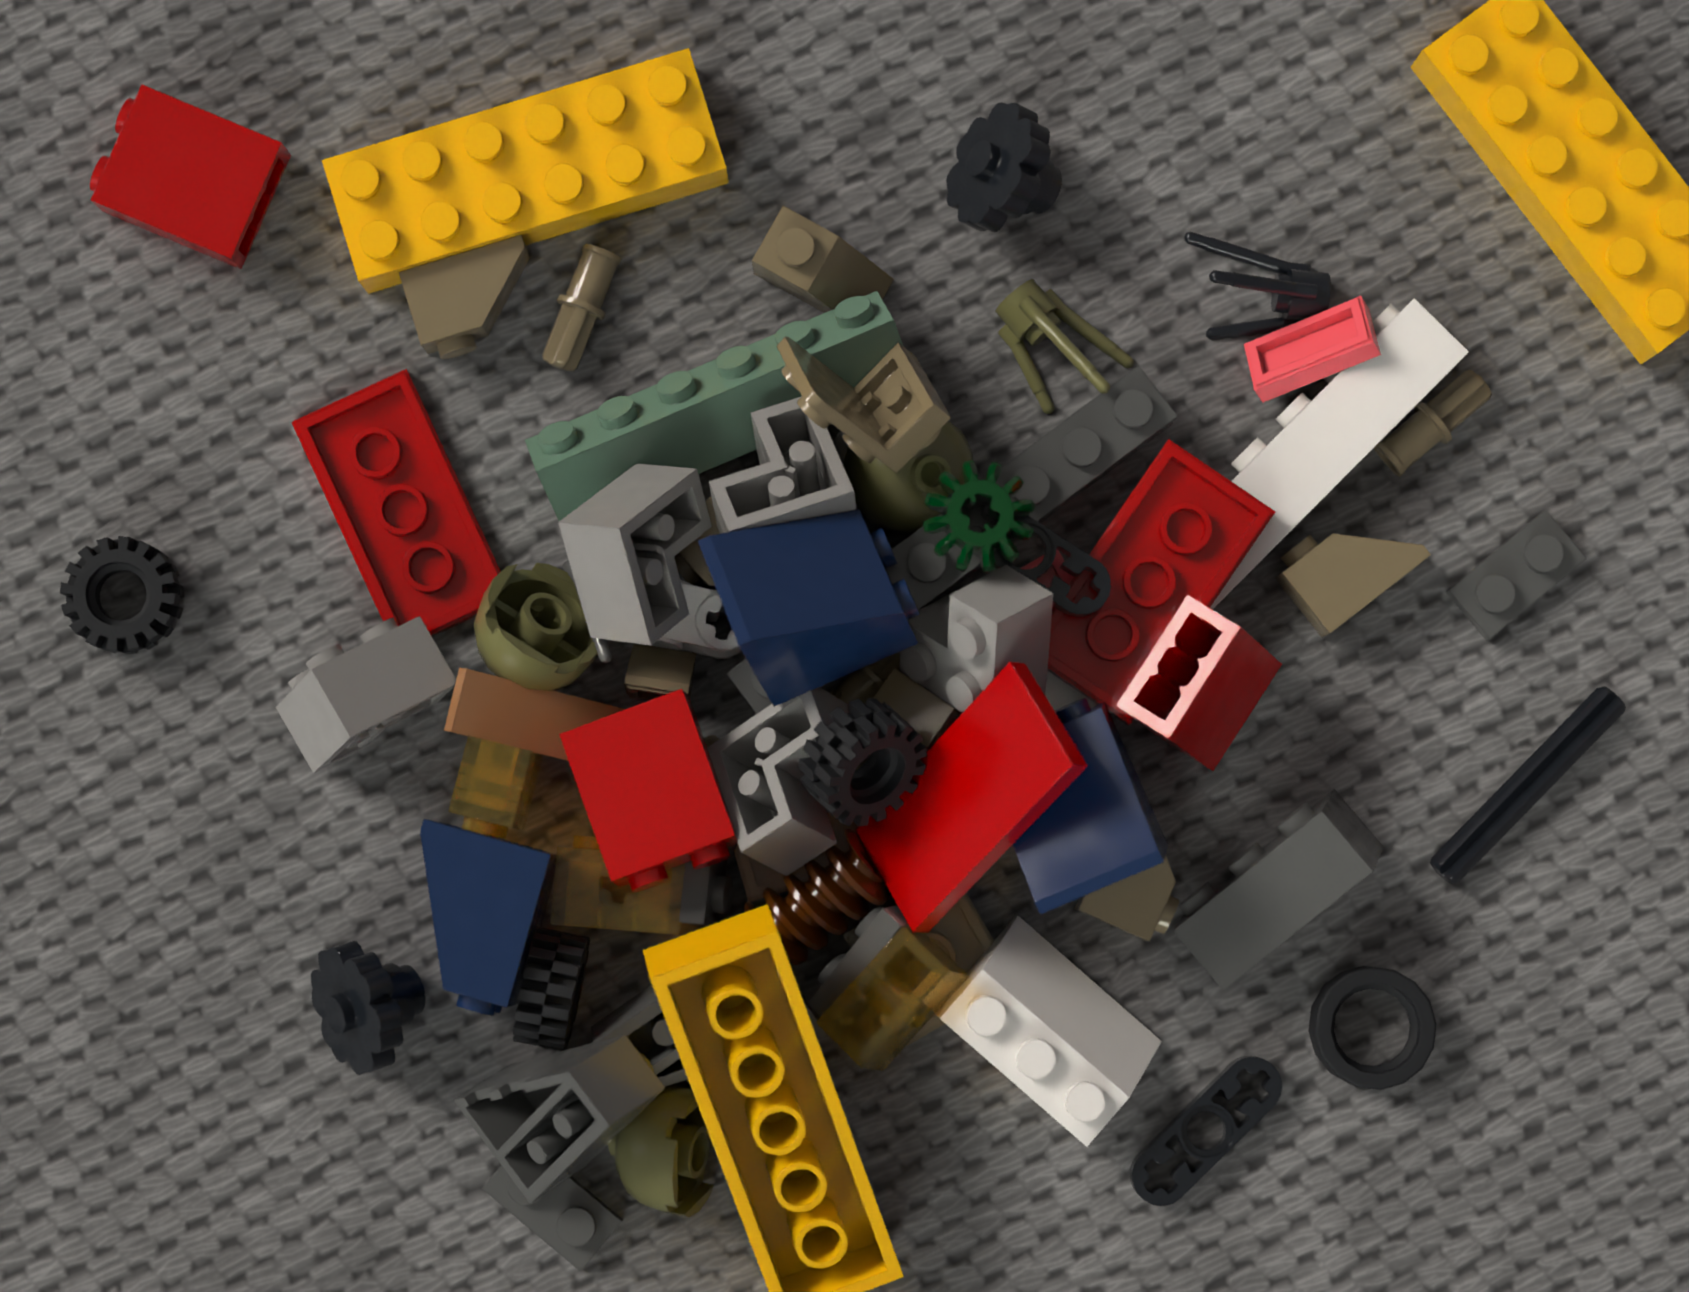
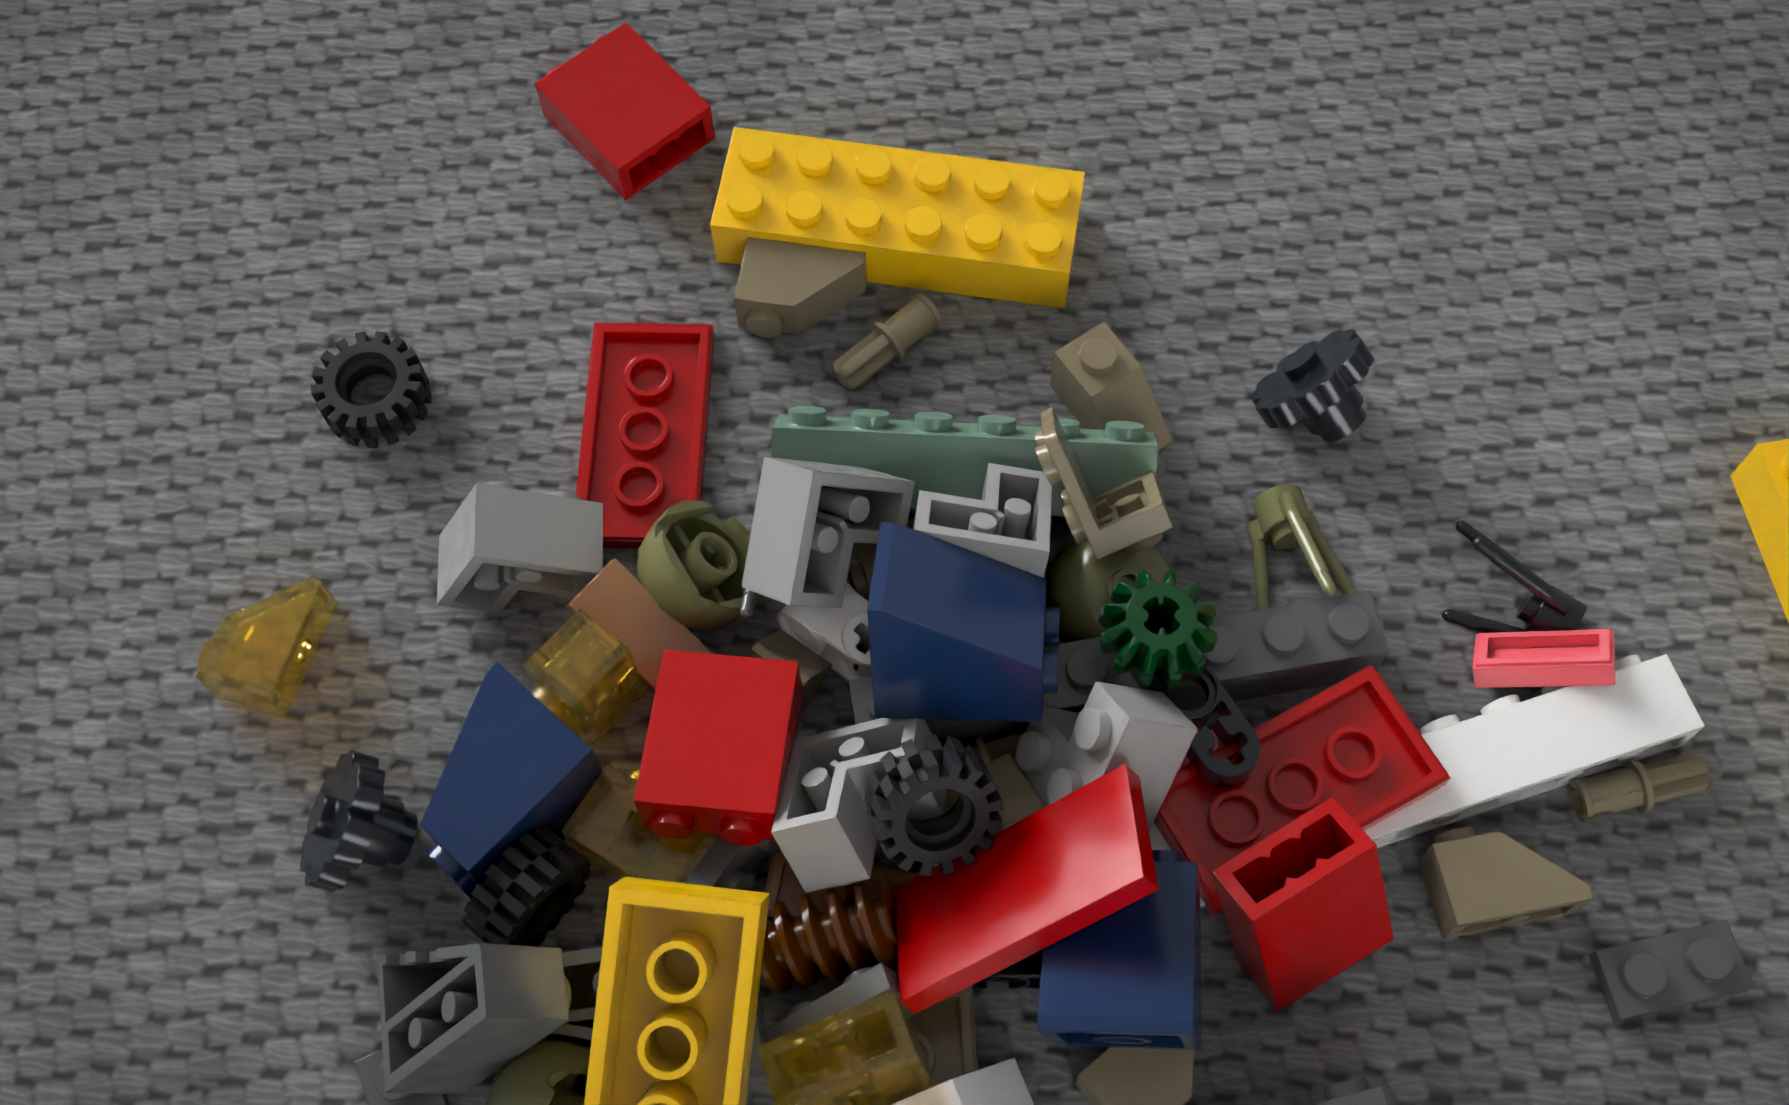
camera: 30 degrees right, 20 degrees down
(187, 889) = (268, 648): none -> clear yellow slope

